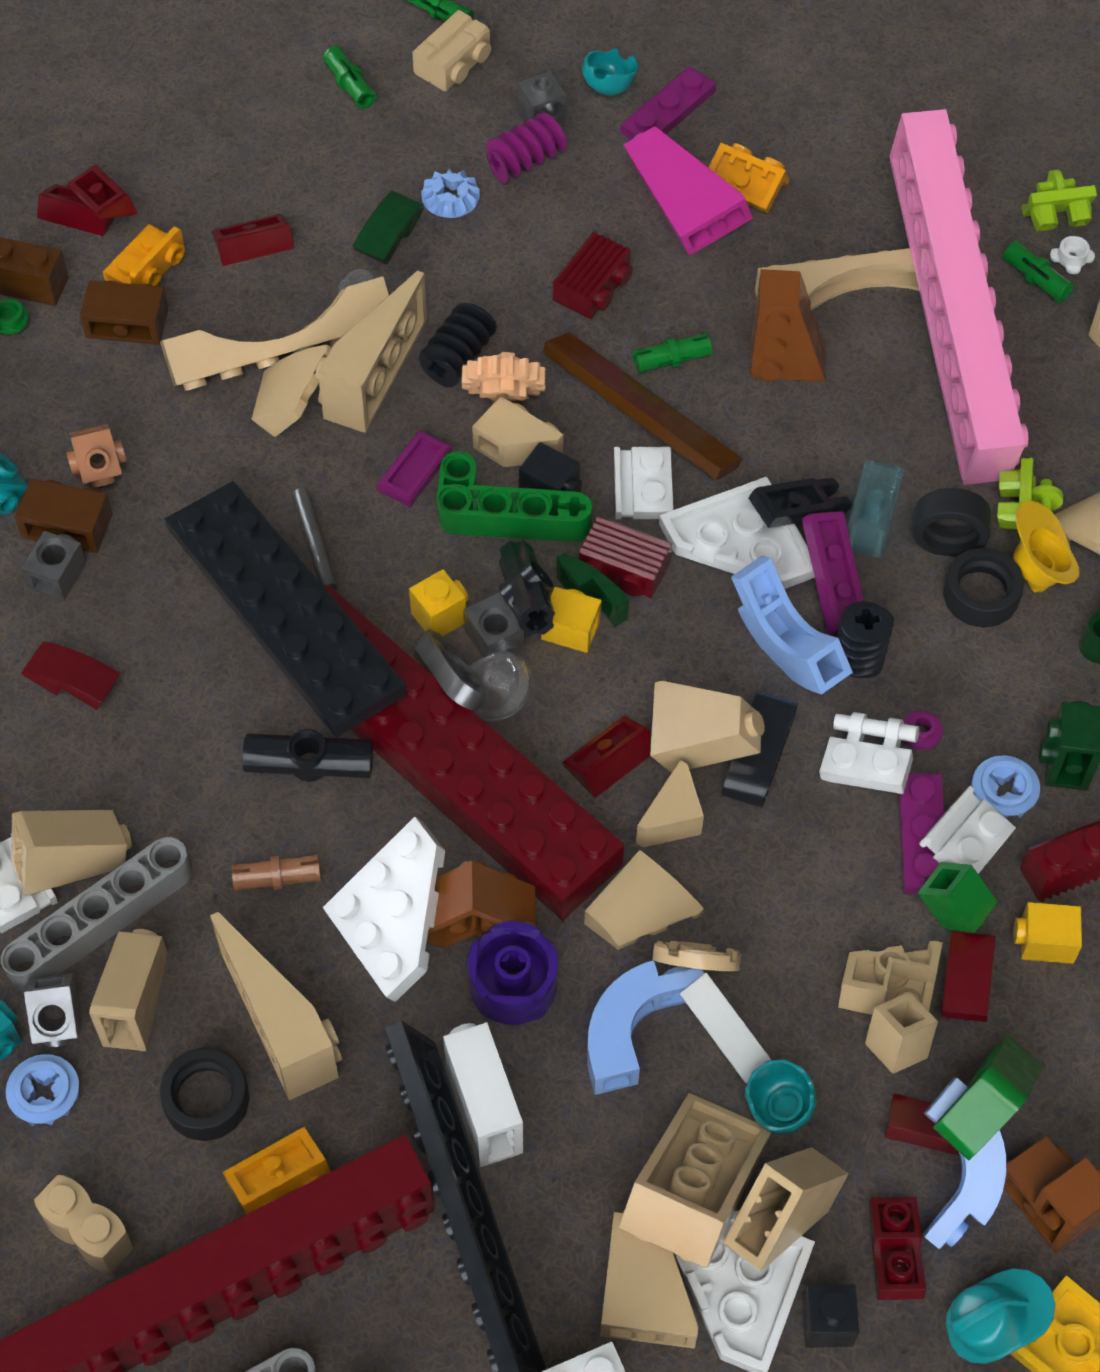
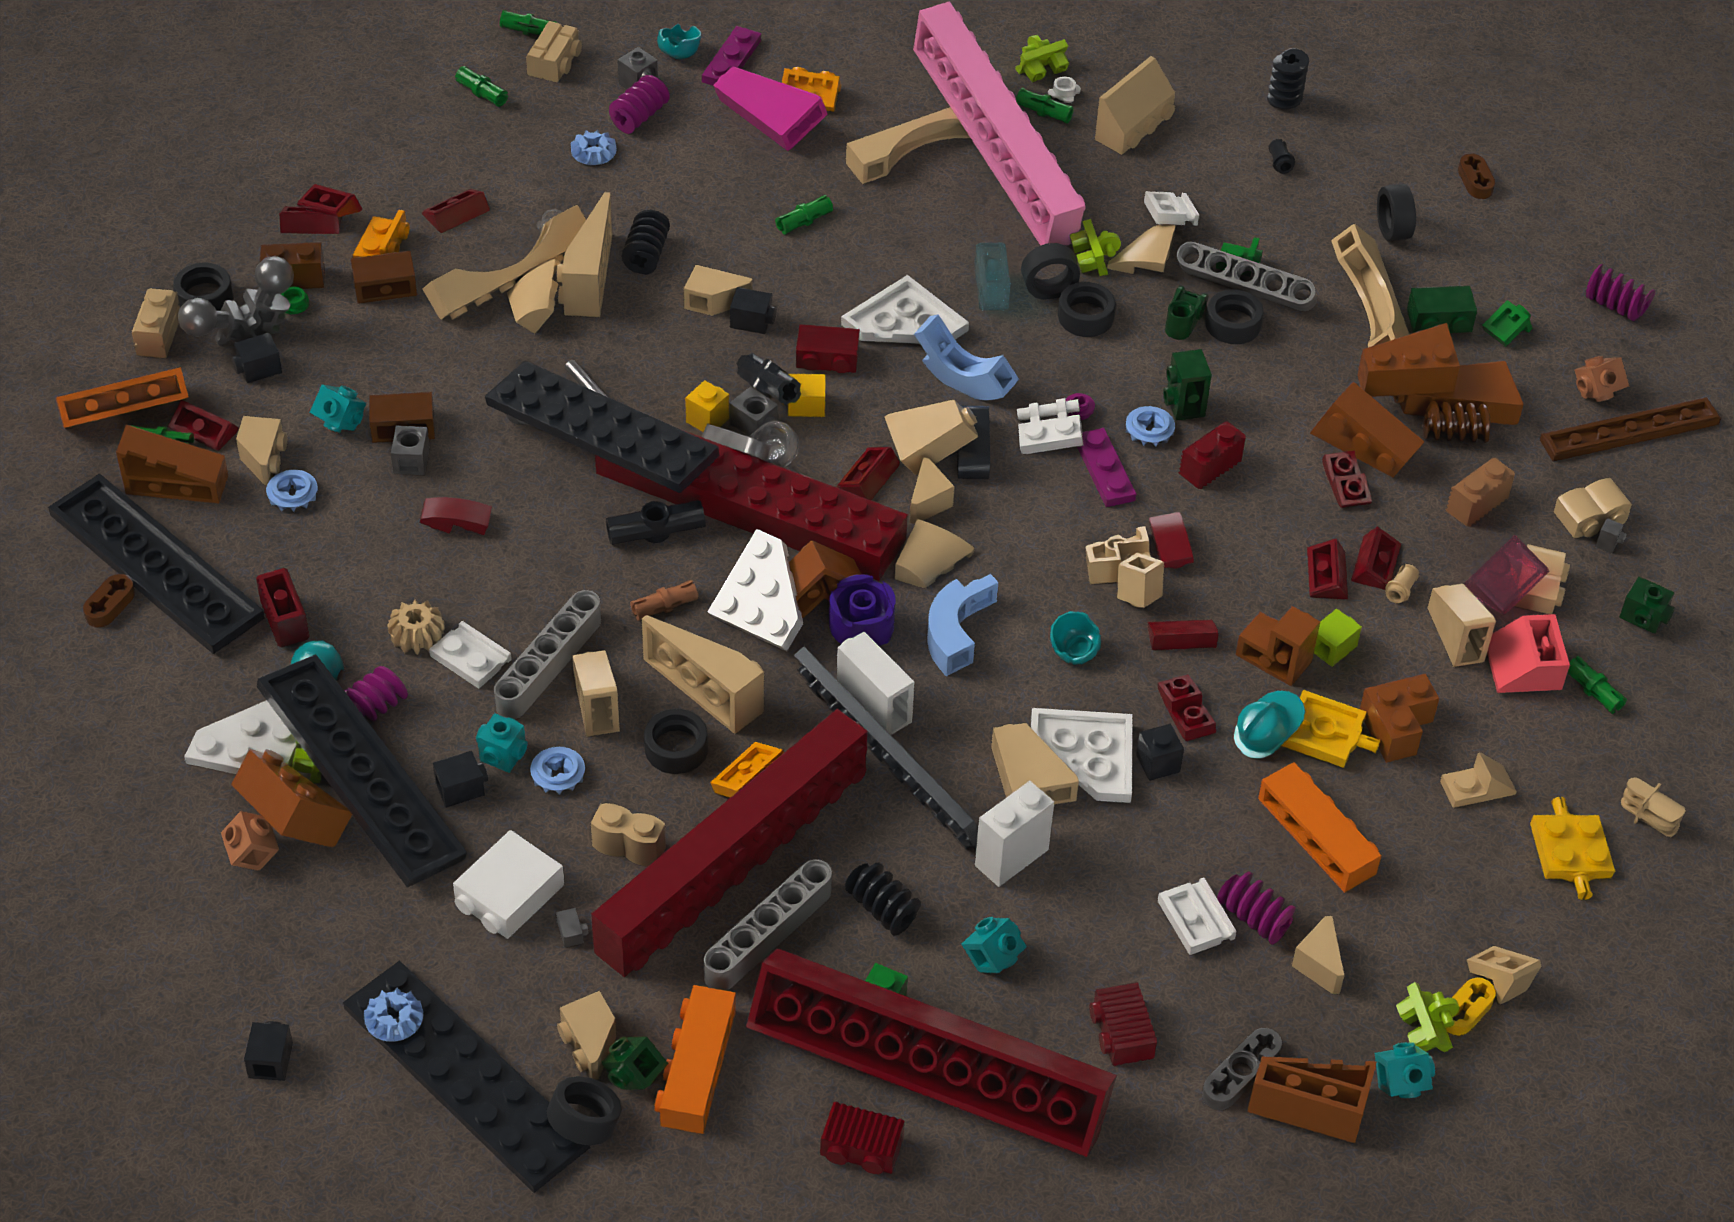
camera: 20 degrees left, 10 degrees down
(57, 991) = (535, 705): brick -> none
(65, 846) = (507, 615): tan slope -> none
(93, 441) = (409, 371): nougat brick -> none
(387, 225) = (556, 179): dark green slope -> none
(414, 468) = (647, 330): magenta tile -> none
(503, 376) = (693, 250): light nougat gear -> none
(561, 514) = (729, 339): green beam -> none
(585, 578) = (804, 364): dark green slope -> none
(593, 275) = (726, 176): dark red brick -> none
(642, 405) = (797, 252): reddish brown tile -> none
(643, 482) = (818, 300): white plate -> none
(694, 1180) = (1040, 697): tan slope -> none
(696, 956) = (996, 565): tan tile -> none
(724, 1026) = (1020, 608): white sticker -> none
(784, 1205) = (1105, 693): tan slope -> none
(785, 331) = (882, 177): dark orange wedge -> none
(793, 500) = (938, 283): black hinge -> none
(832, 565) = (981, 319): magenta plate -> none
(865, 637) = (1021, 351): black piece -> none
(957, 897) = (1145, 493): green brick -> none
(968, 832) = (1137, 458): white plate -> none
(980, 1180) = (1221, 627): light blue arch -> none
(990, 1099) = (1215, 592): green beam -> none
(1043, 548) = (1119, 275): yellow piece -> none
(1049, 932) = (1214, 501): yellow brick -> none

